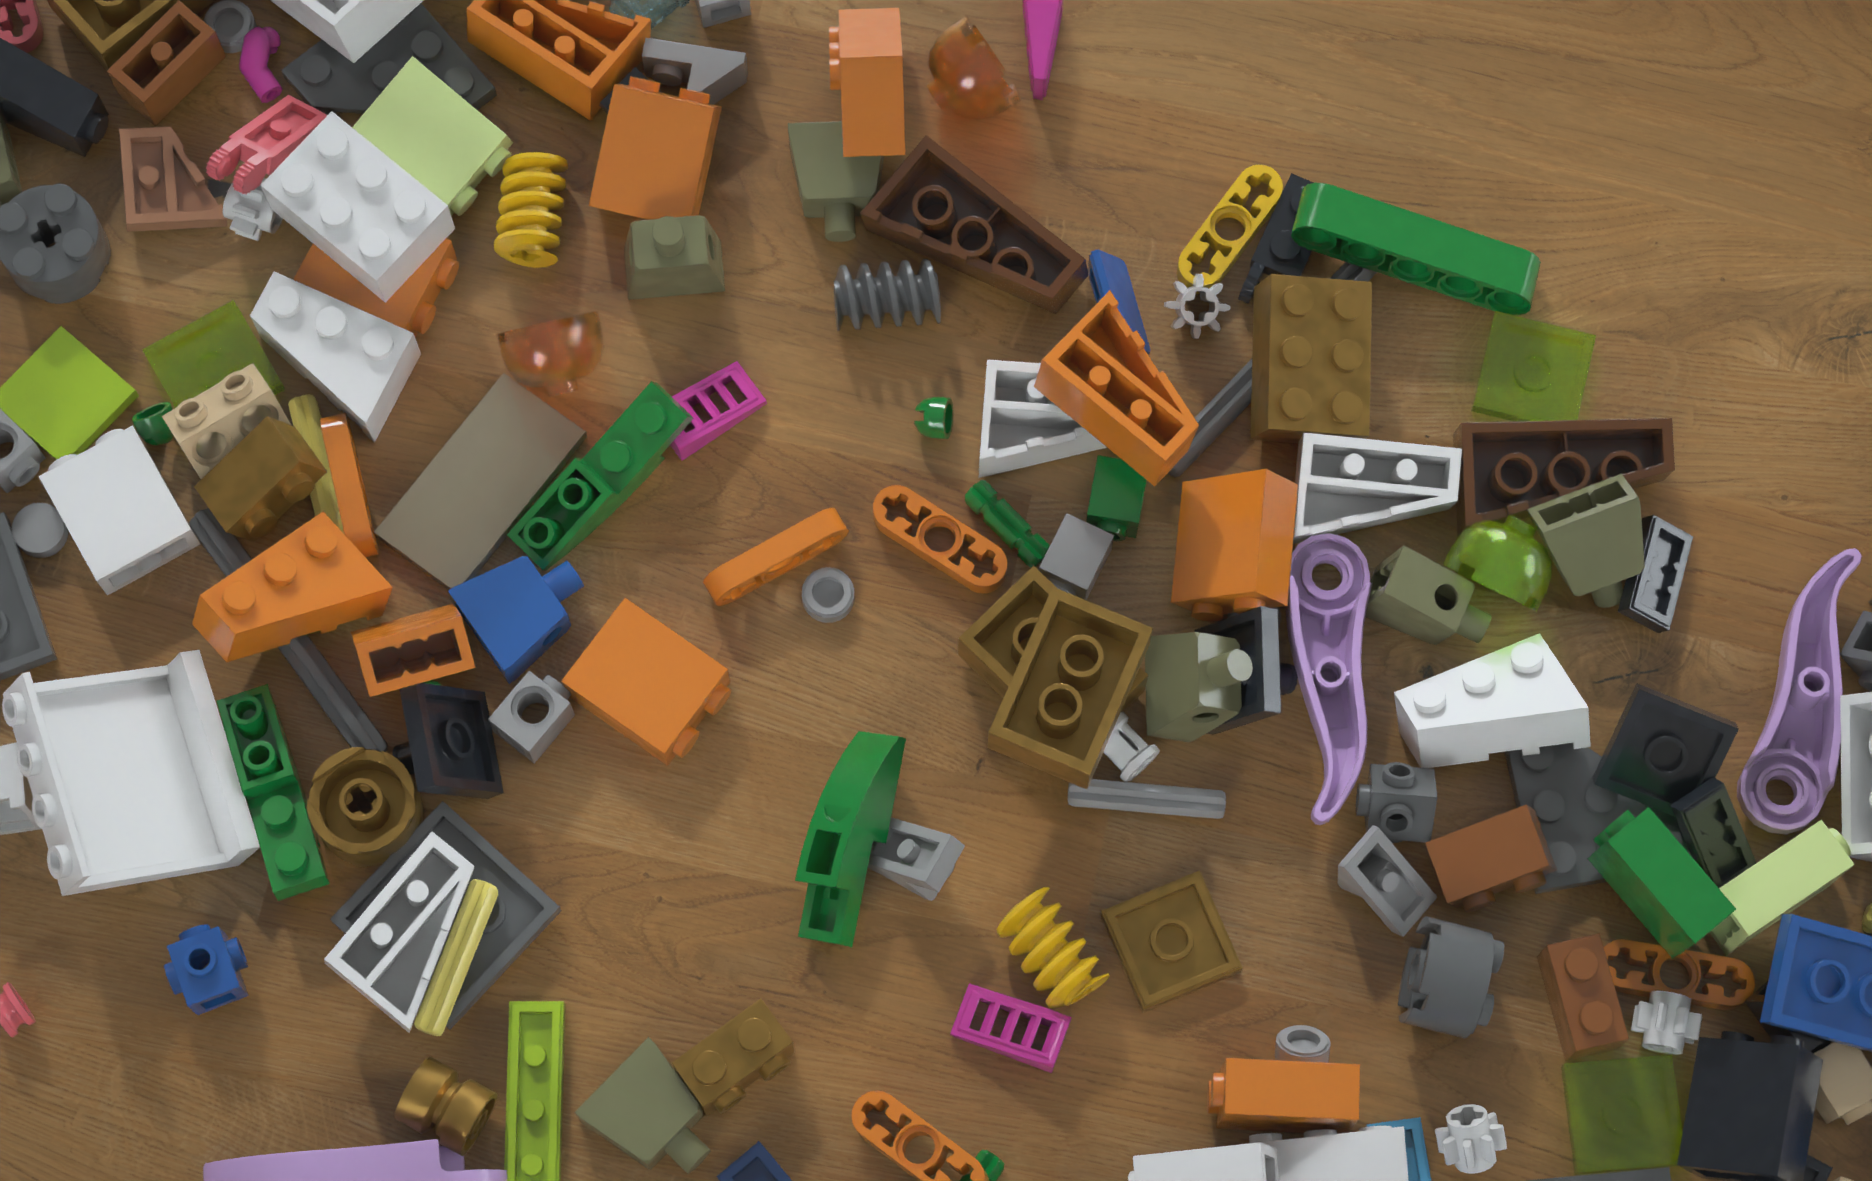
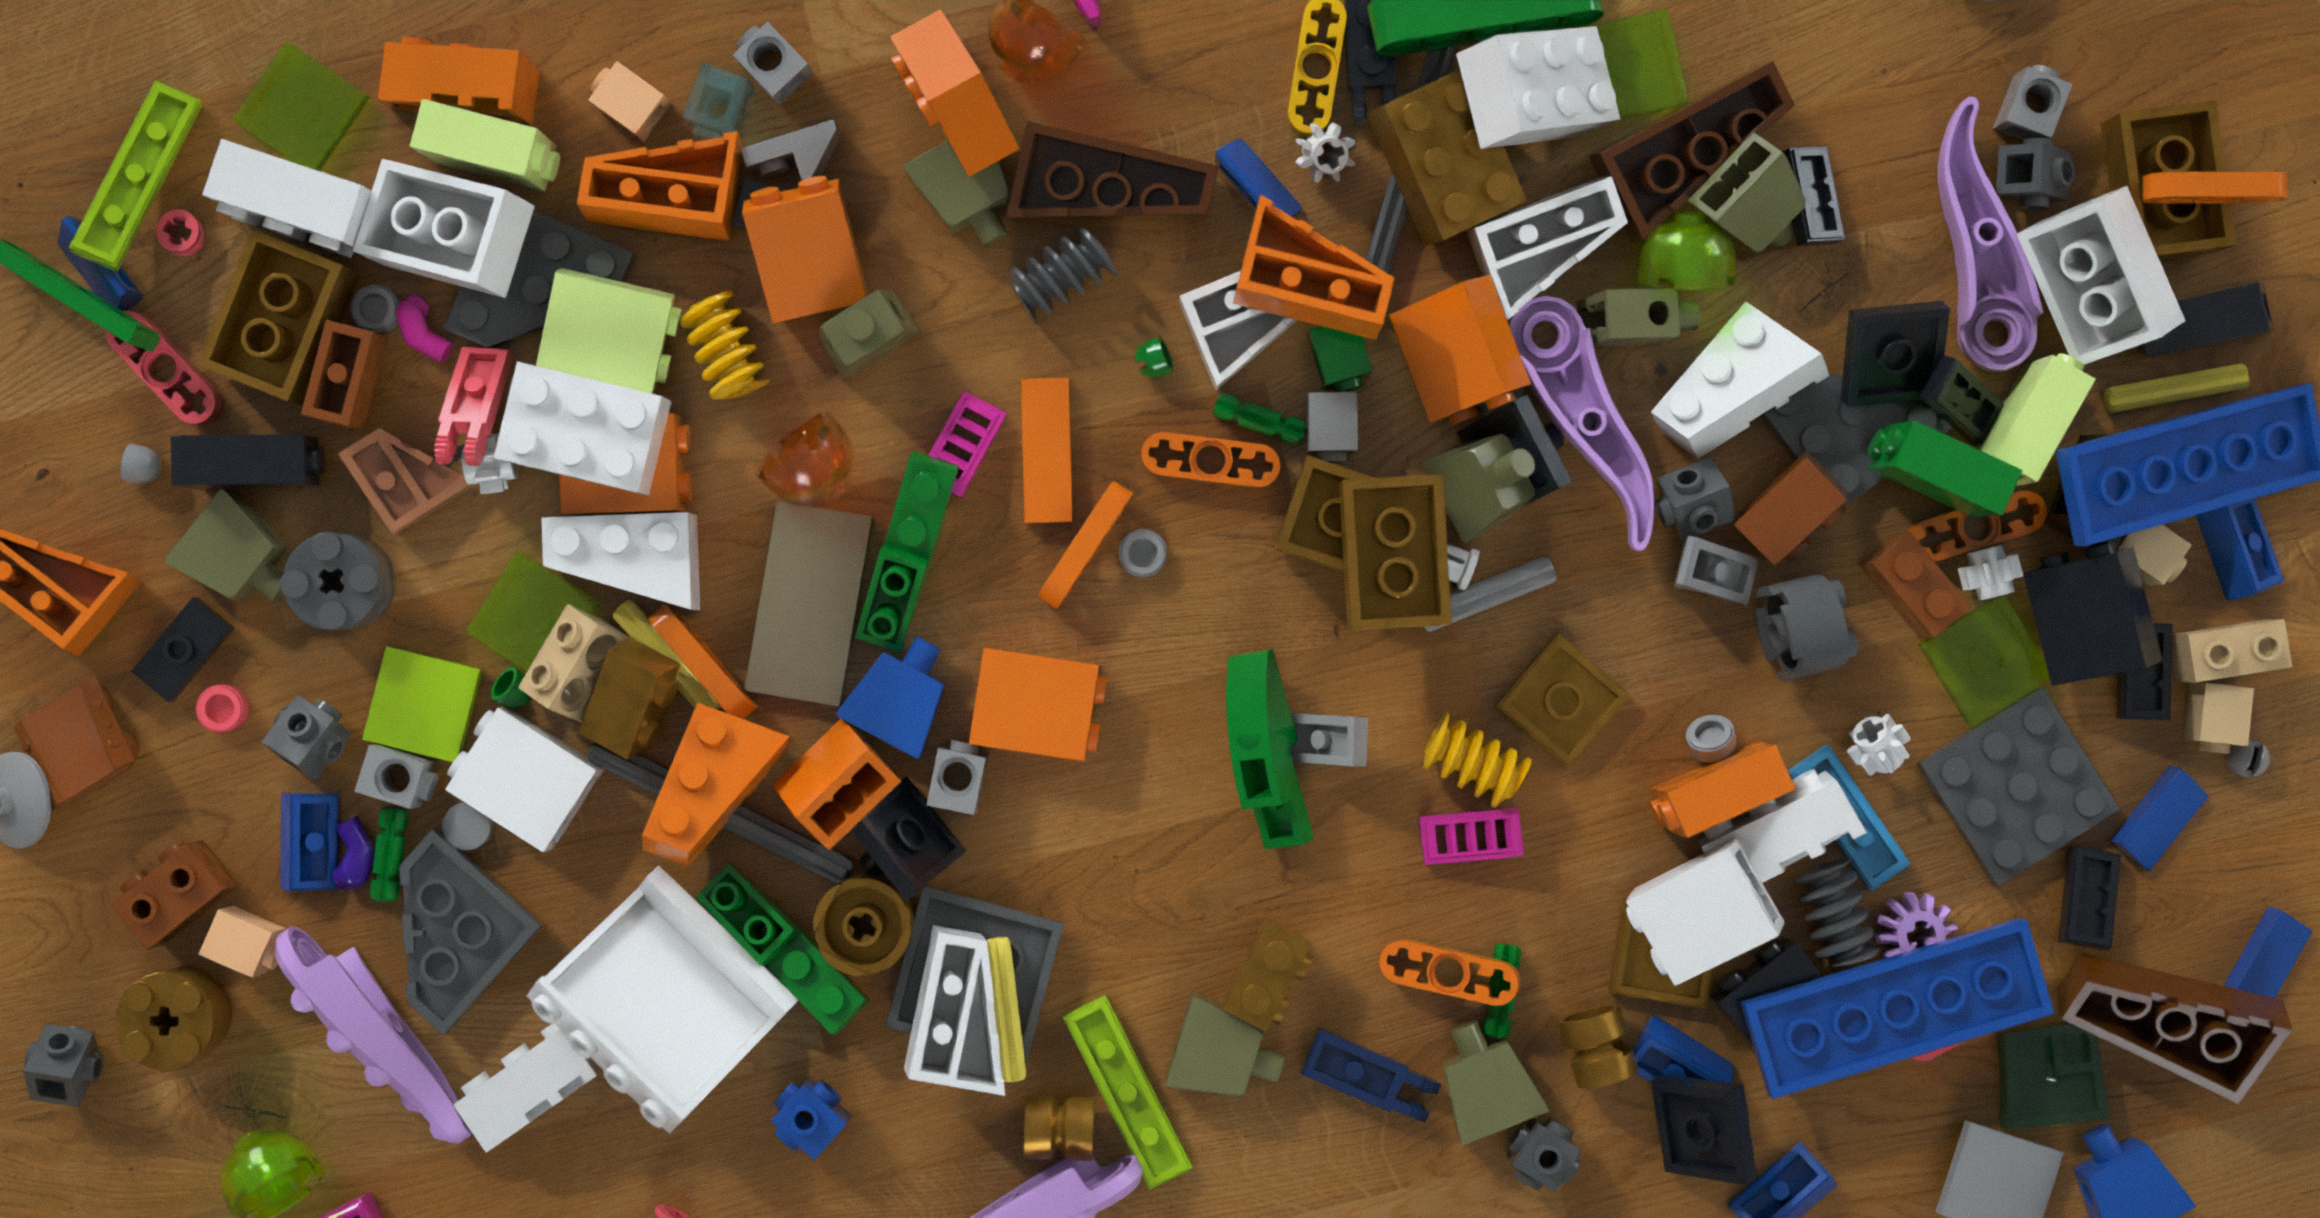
camera: 30 degrees left, 15 degrees up
(786, 454) = (1046, 450): none -> orange tile
(1431, 334) = (1538, 86): none -> white brick

